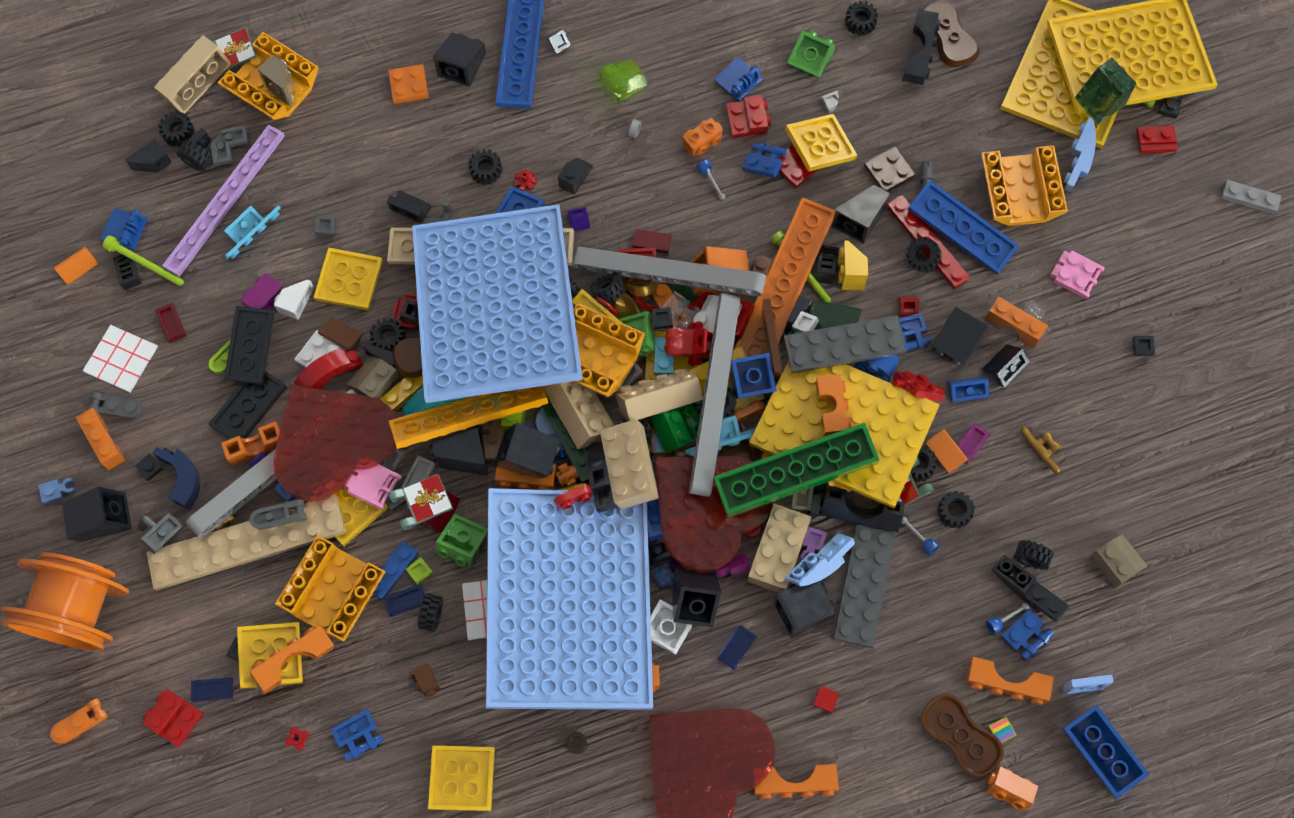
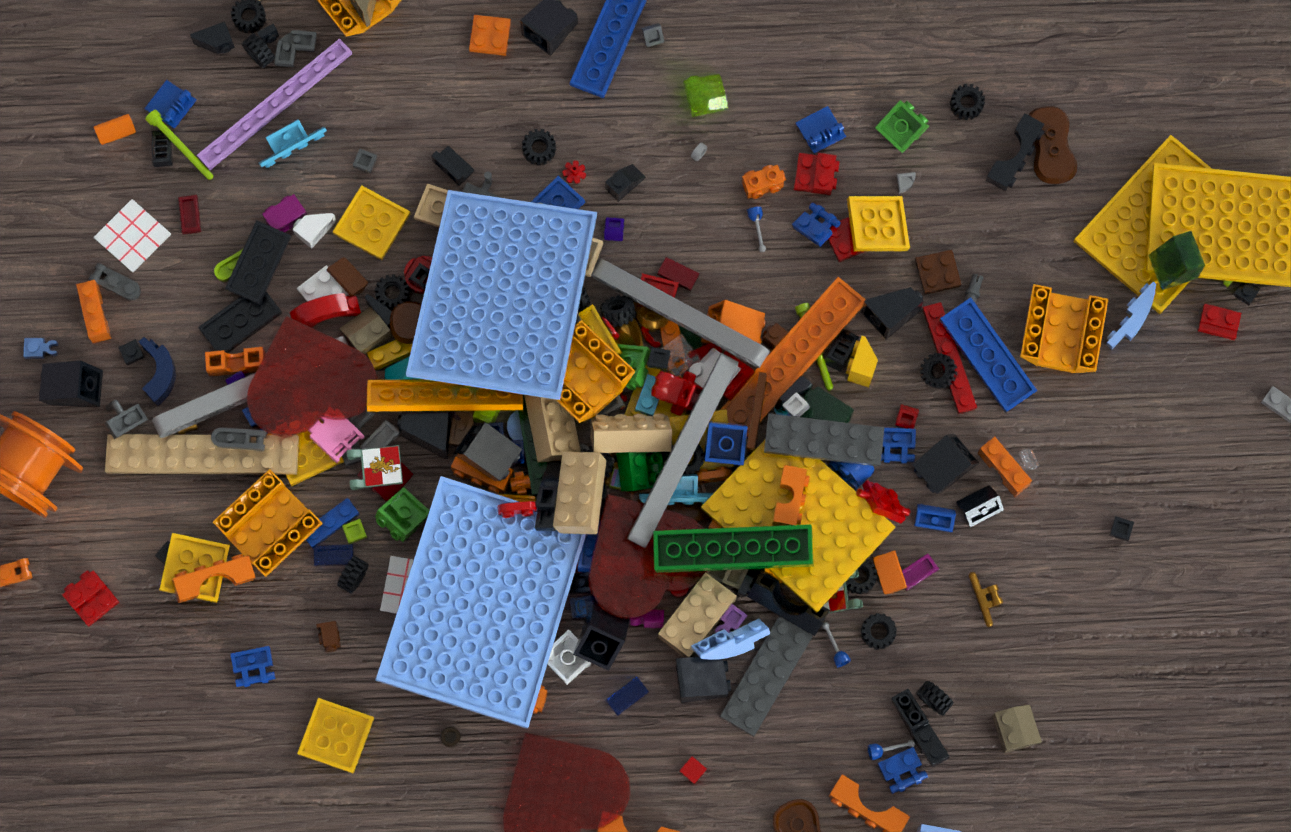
camera: 15 degrees right, 5 degrees up
(212, 689) = (133, 582): clear blue tile -> none
(299, 744) = (203, 651): red plate -> none
(1075, 272) = (1084, 435): bright pink plate -> none

